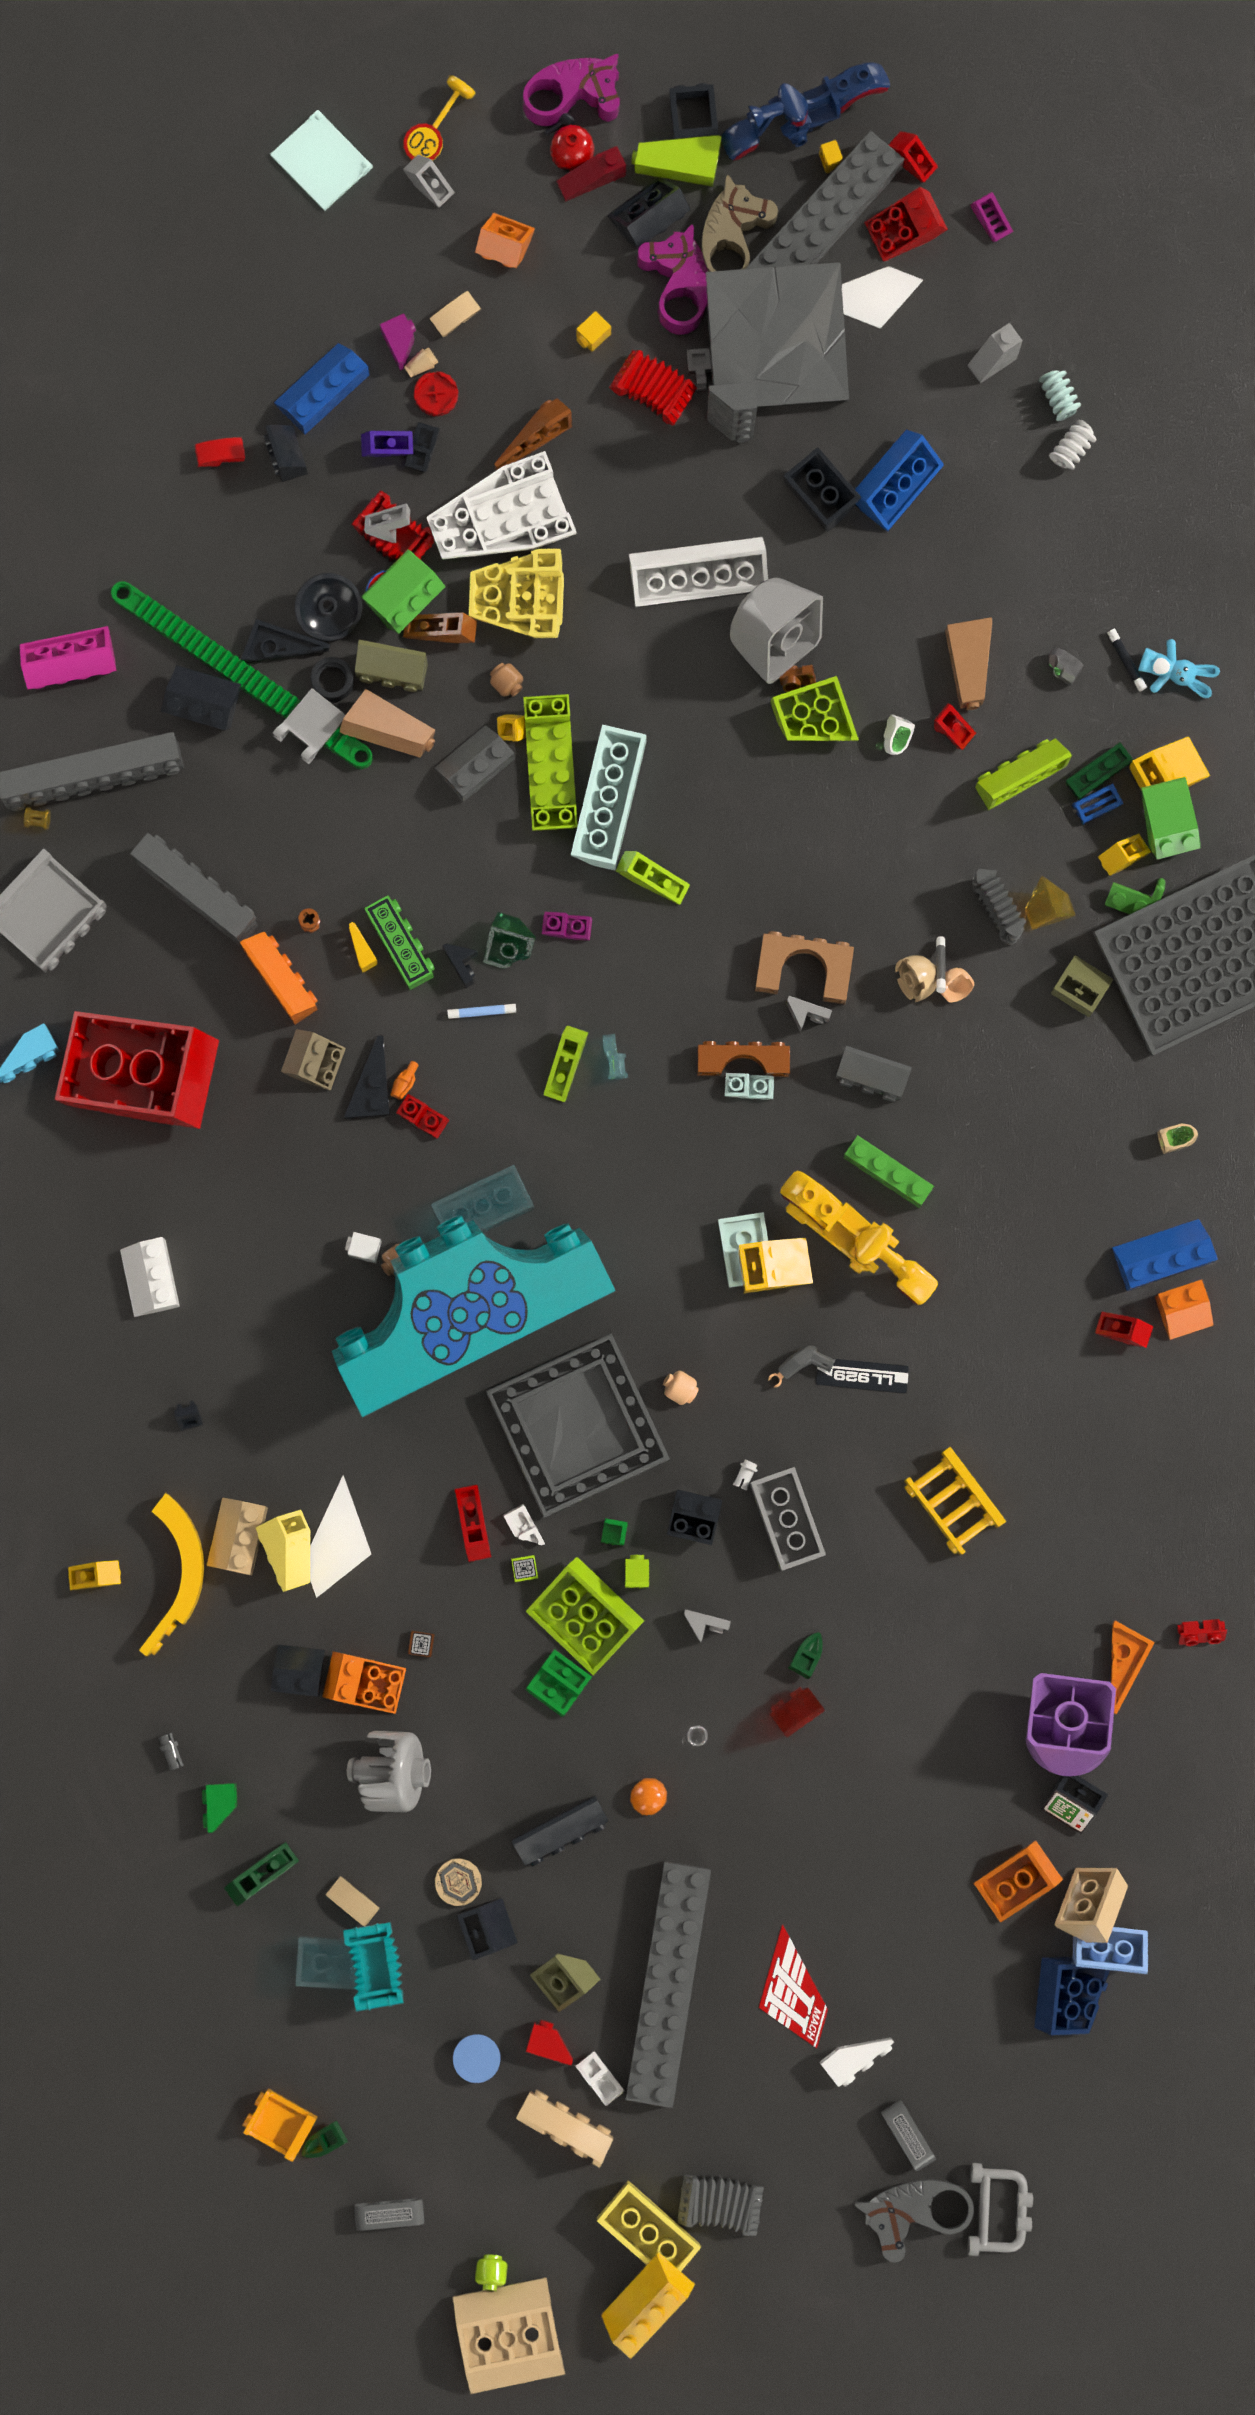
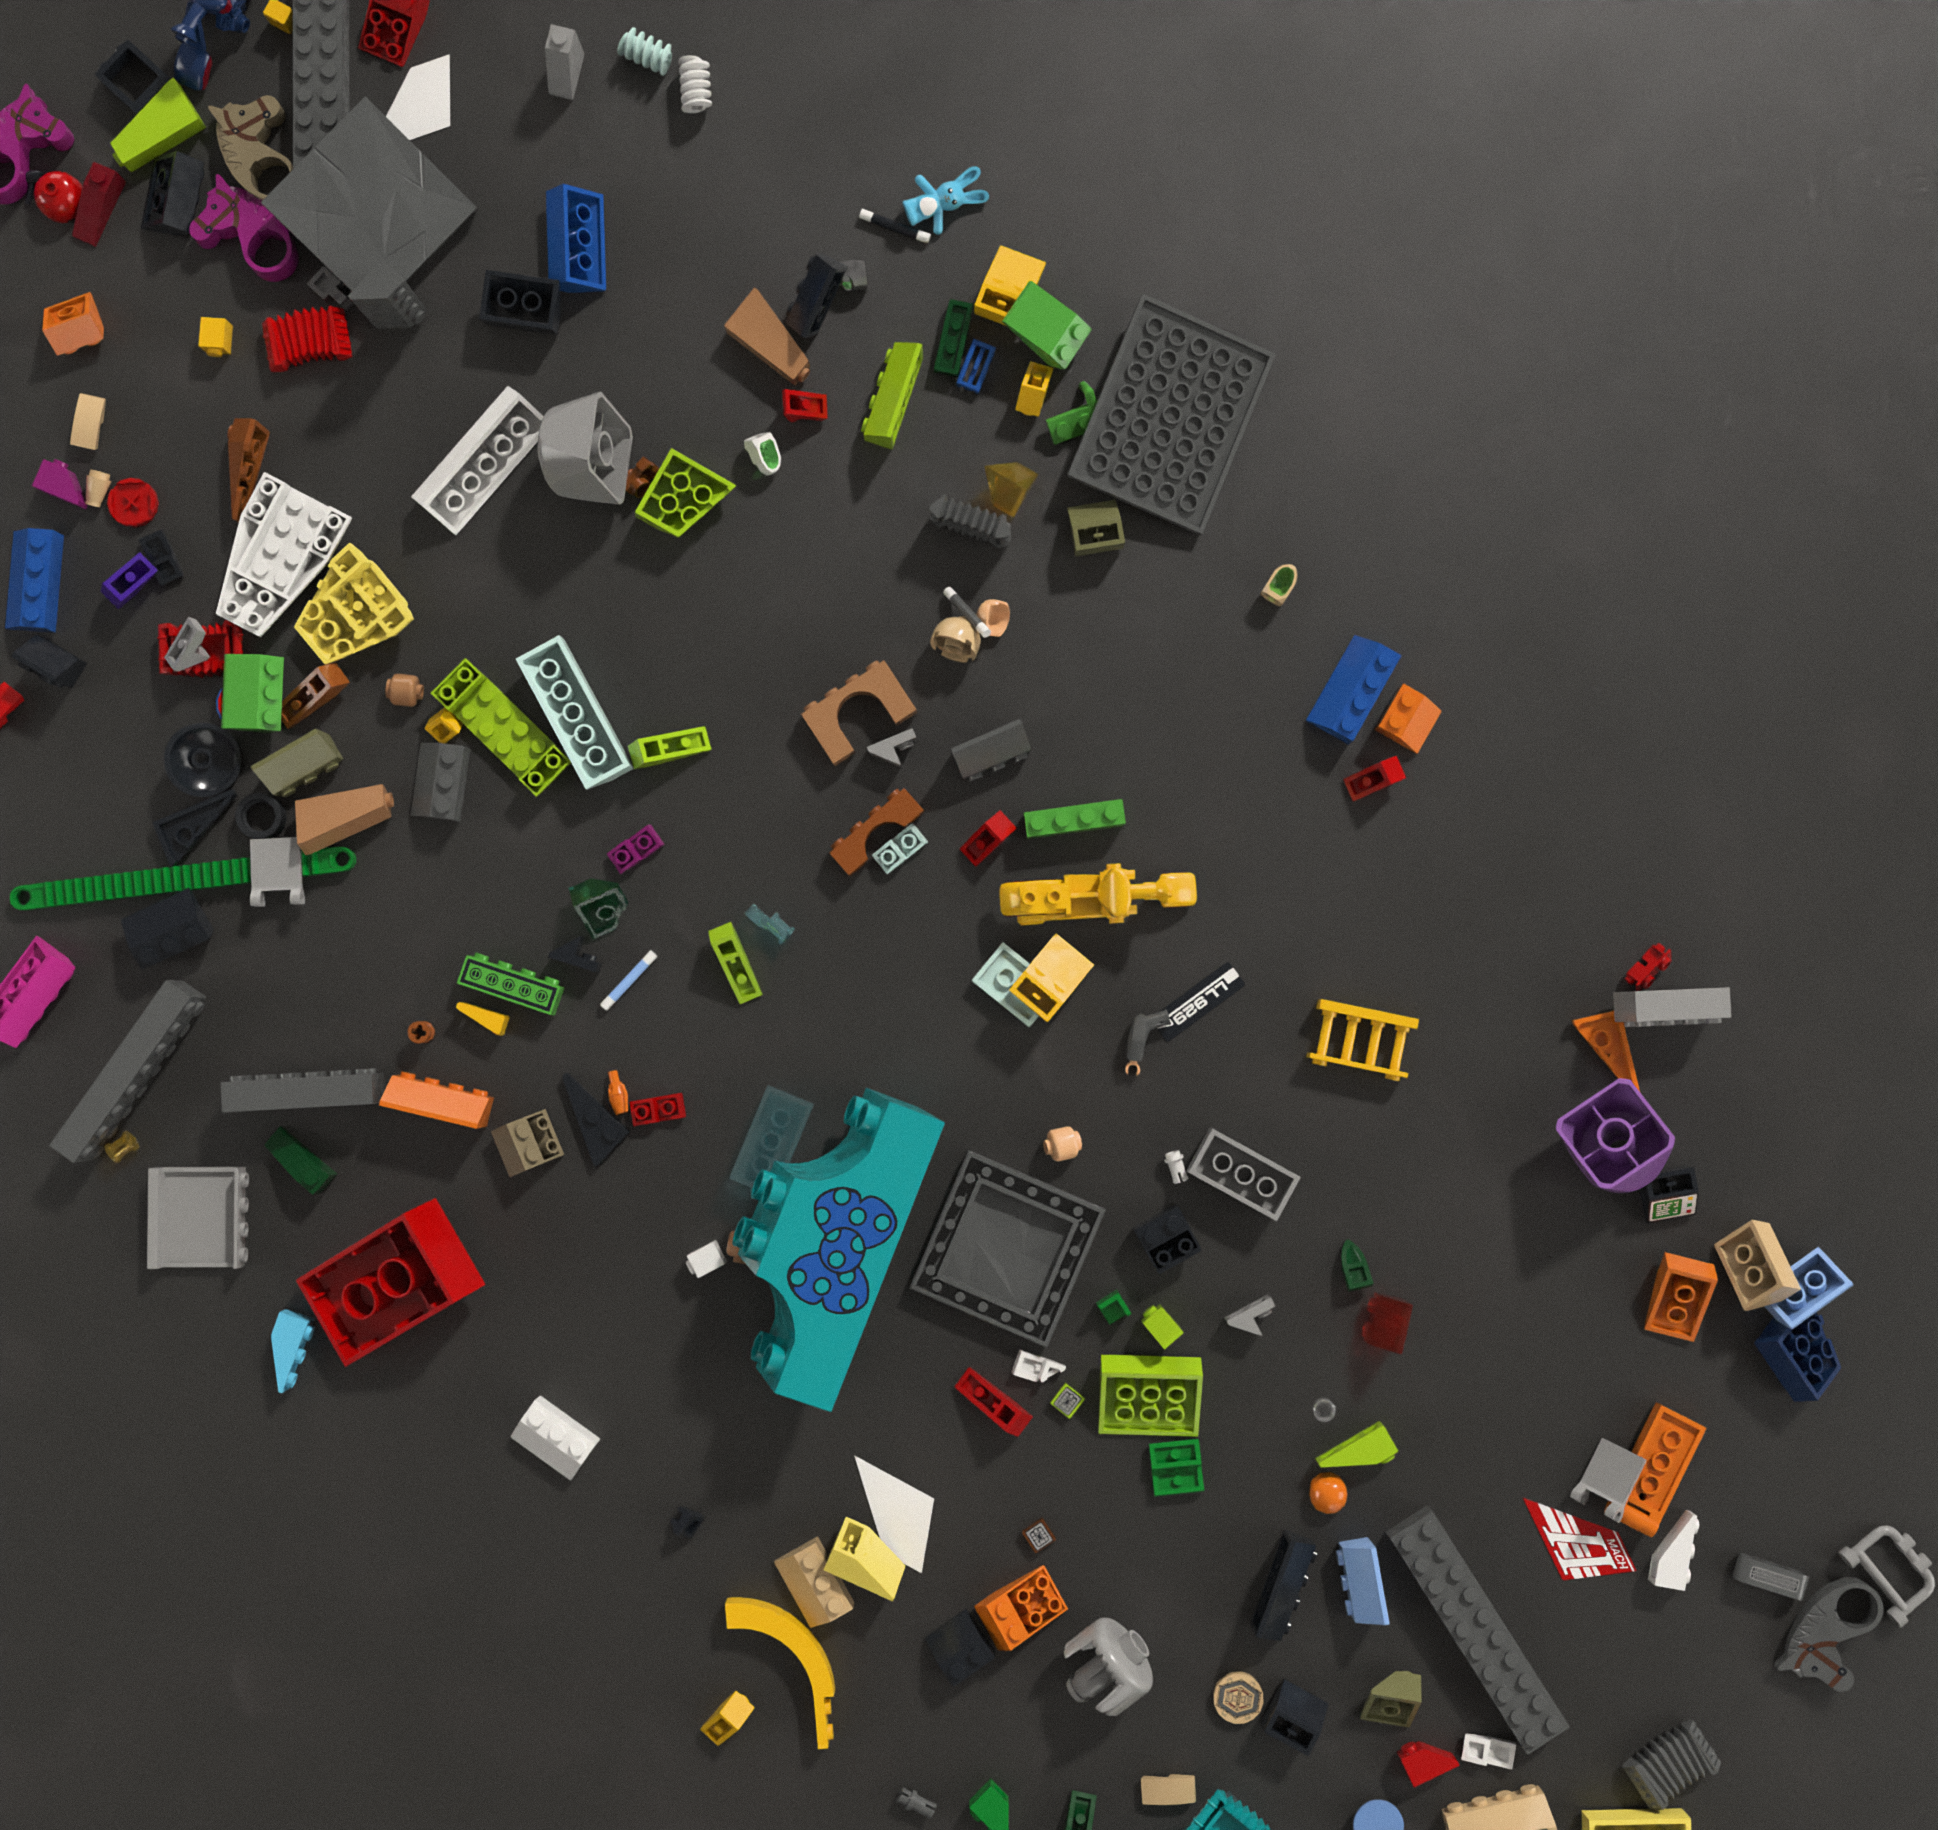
camera: 35 degrees left, 5 degrees up
(148, 935) = (300, 1161): none -> dark green slope
(617, 1876) = (1362, 1581): none -> light blue slope
(703, 1787) = (1365, 1448): none -> lime slope
(817, 1132) = (988, 838): none -> red slope
(855, 1961) = (1611, 1476): none -> light grey flag
(892, 1985) = (1668, 1446): none -> orange hinge
(1028, 659) = (815, 295): none -> black slope
(1193, 1668) = (1672, 1007): none -> light grey brick

